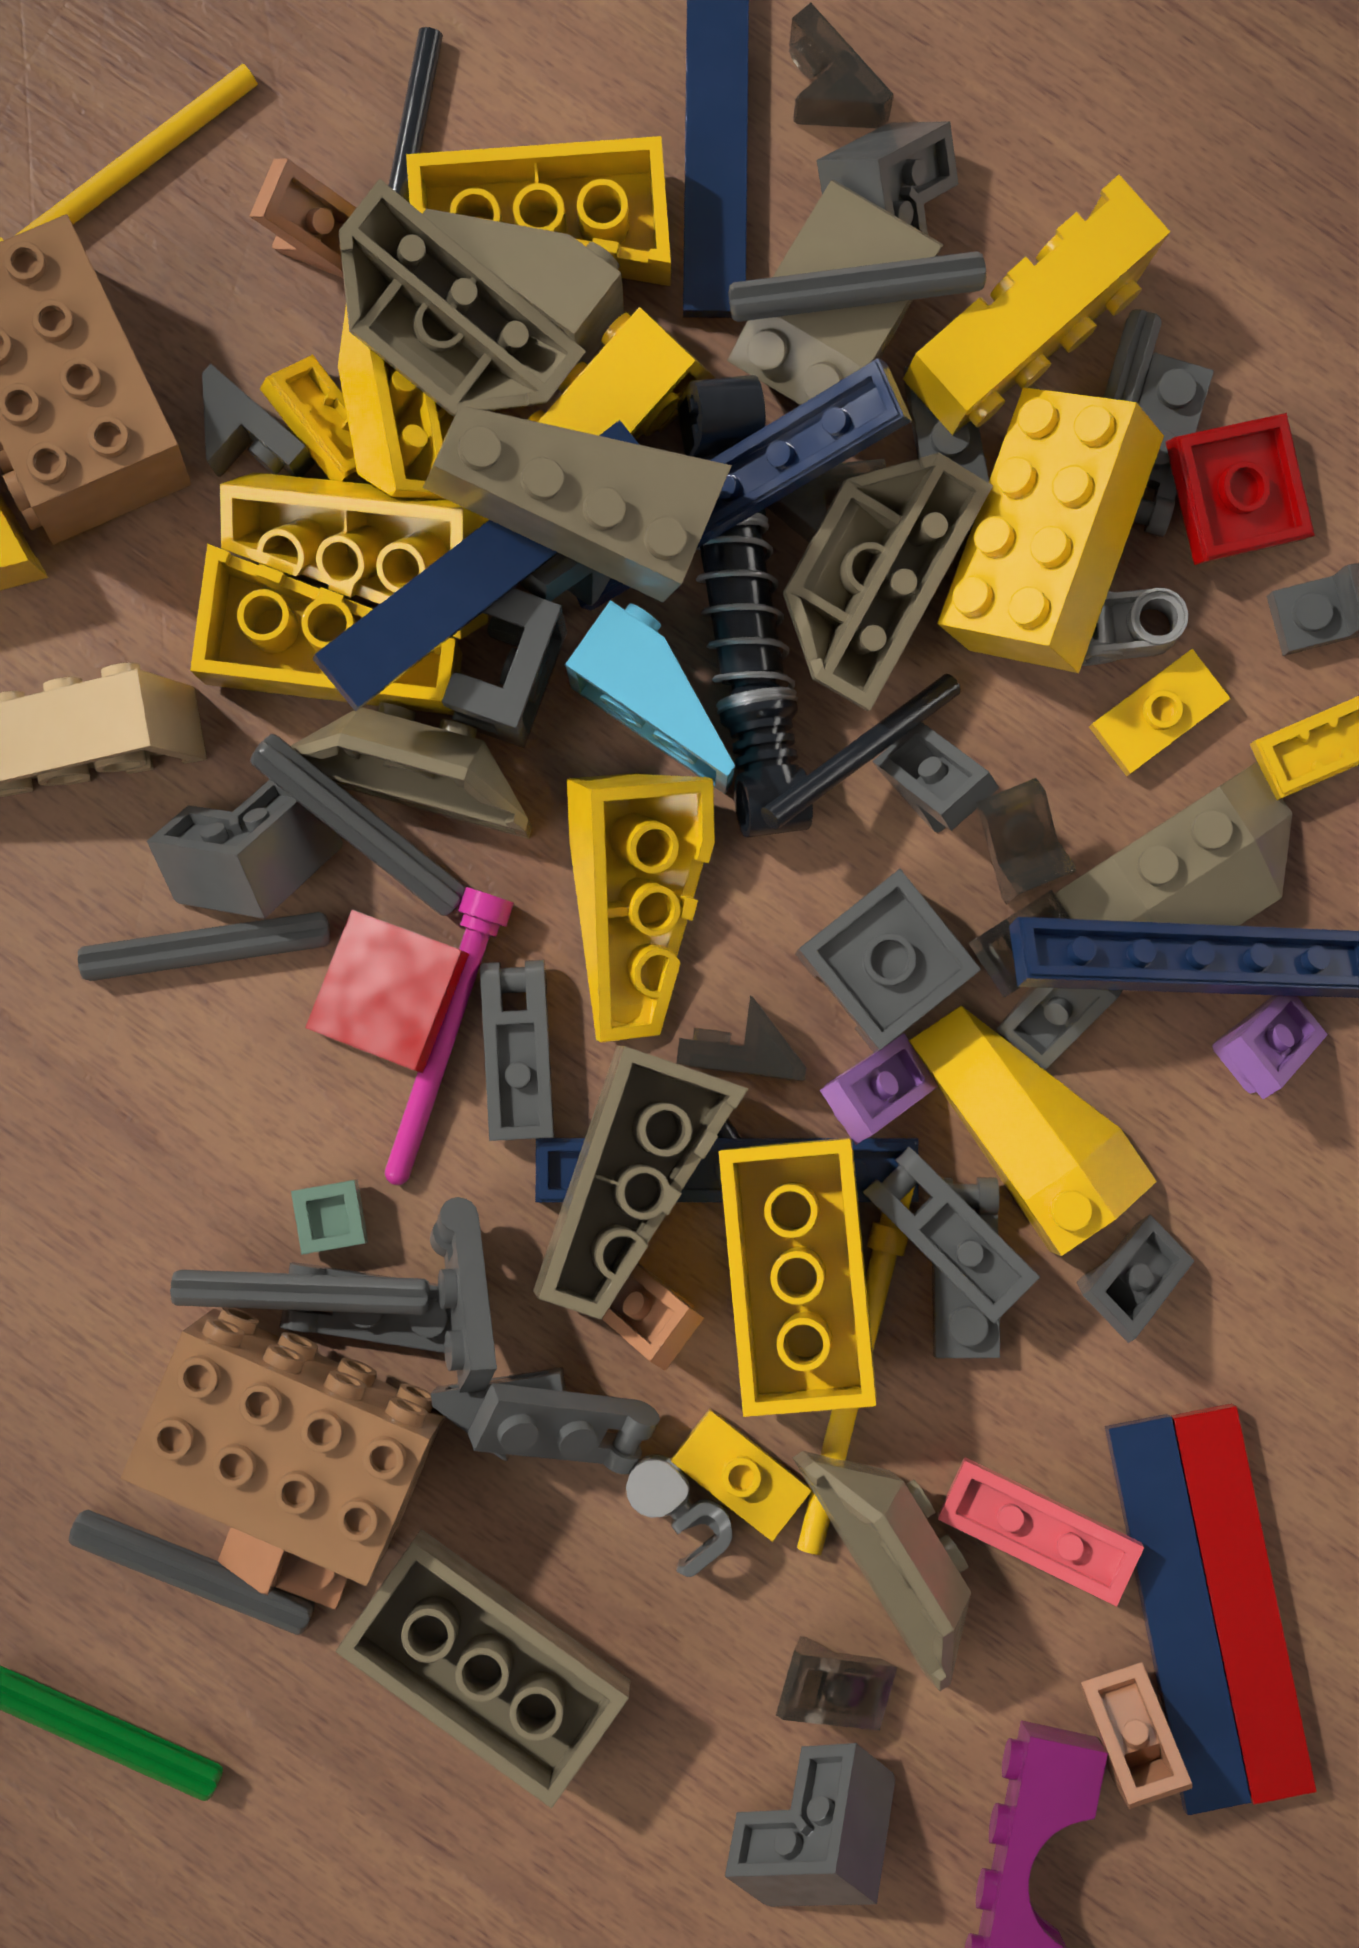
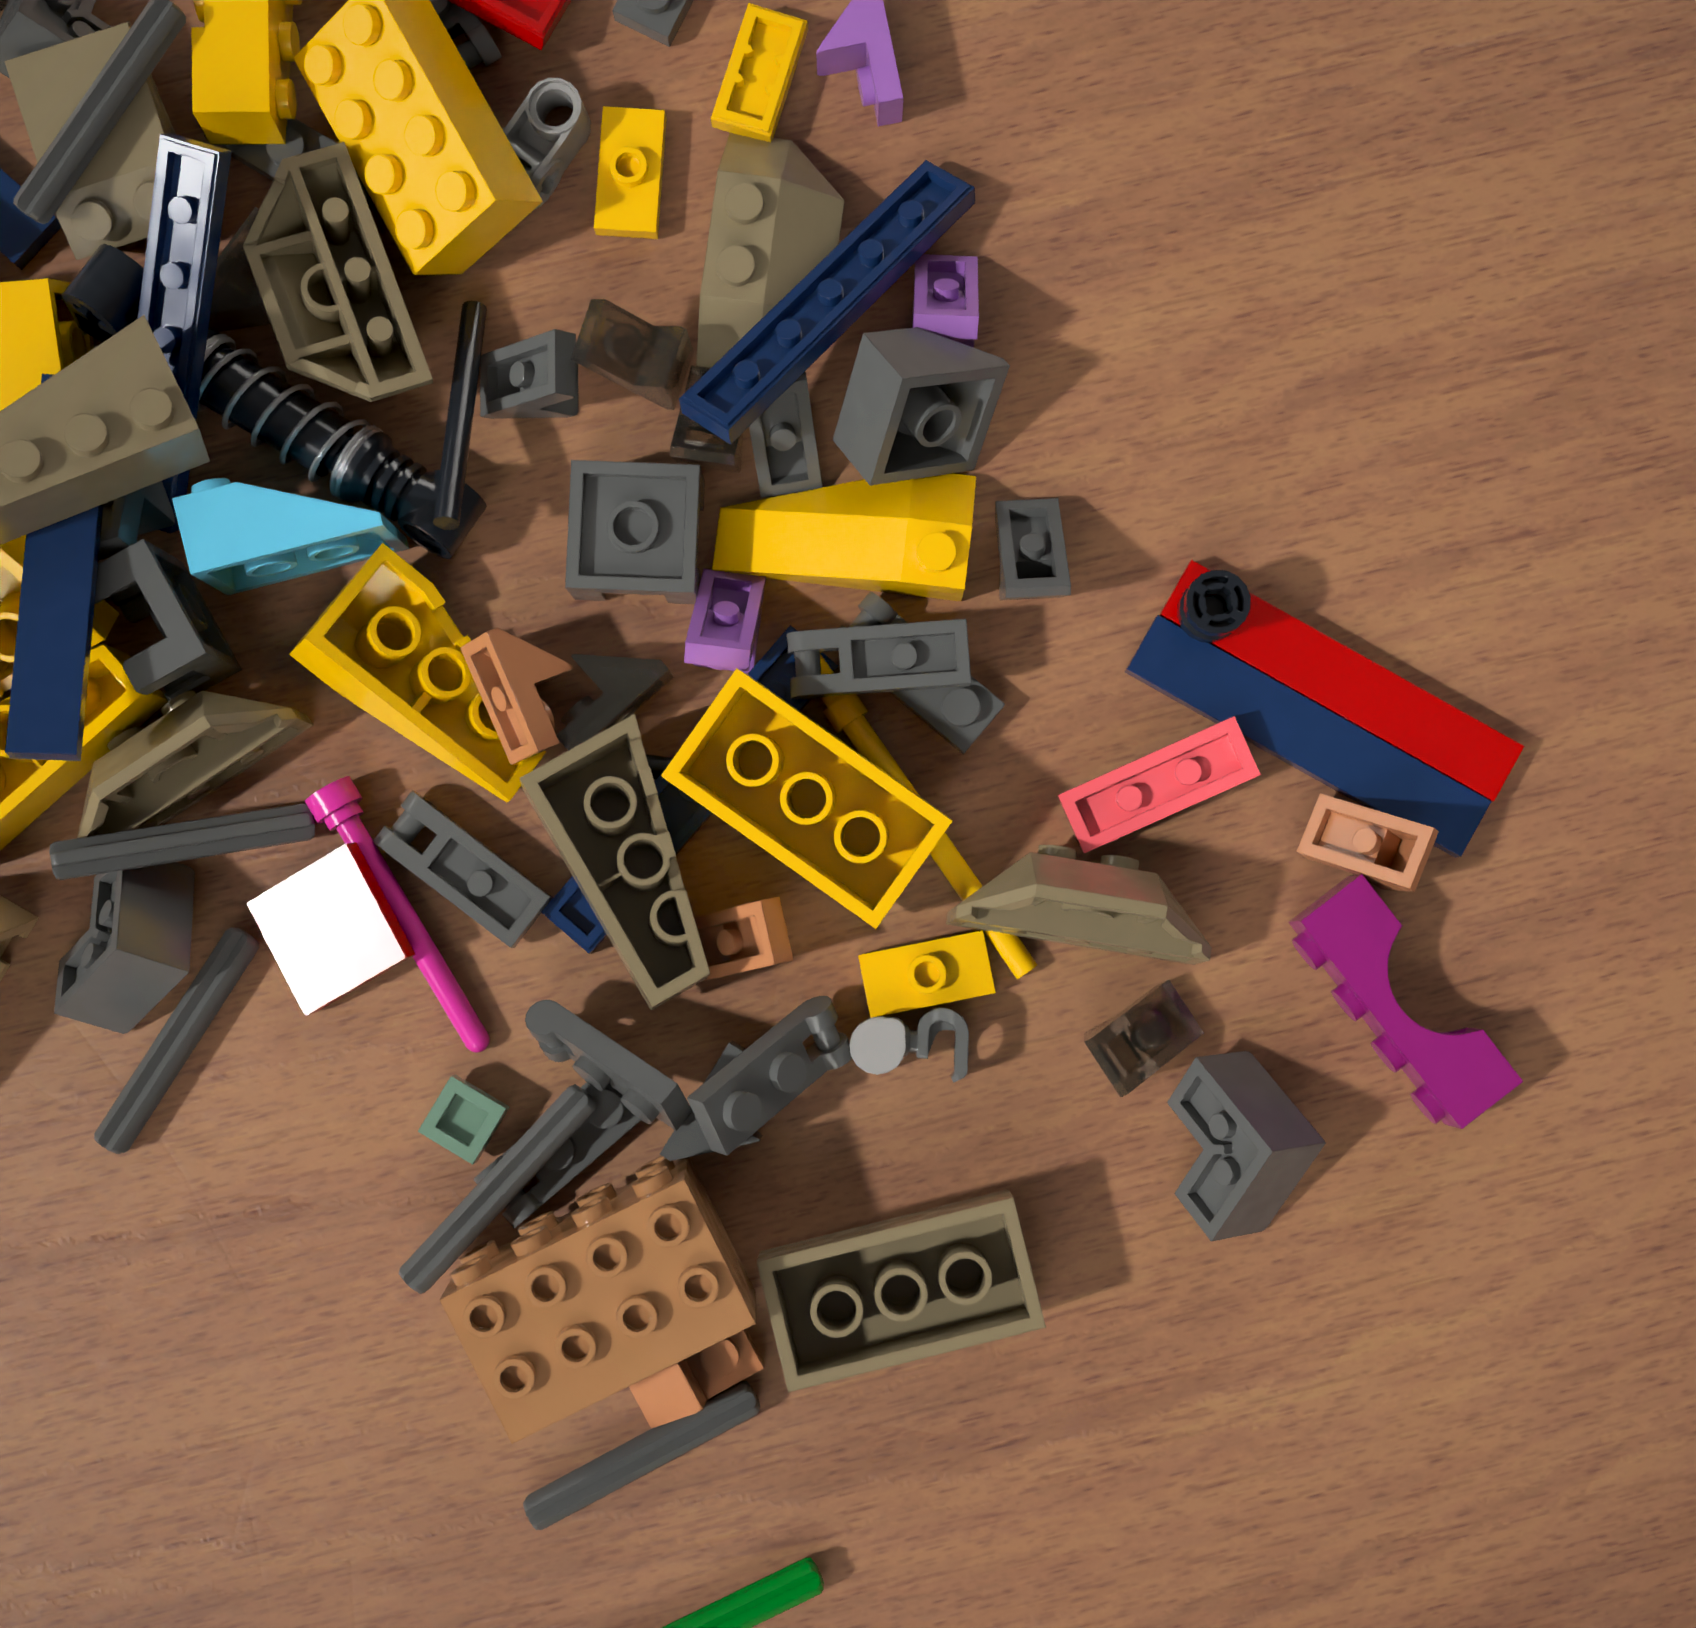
camera: 45 degrees left, 0 degrees up
(689, 962) = (507, 680): none -> nougat slope
(1171, 1095) = (917, 405): none -> dark grey slope
(1202, 1455) = (1206, 617): none -> black wheel

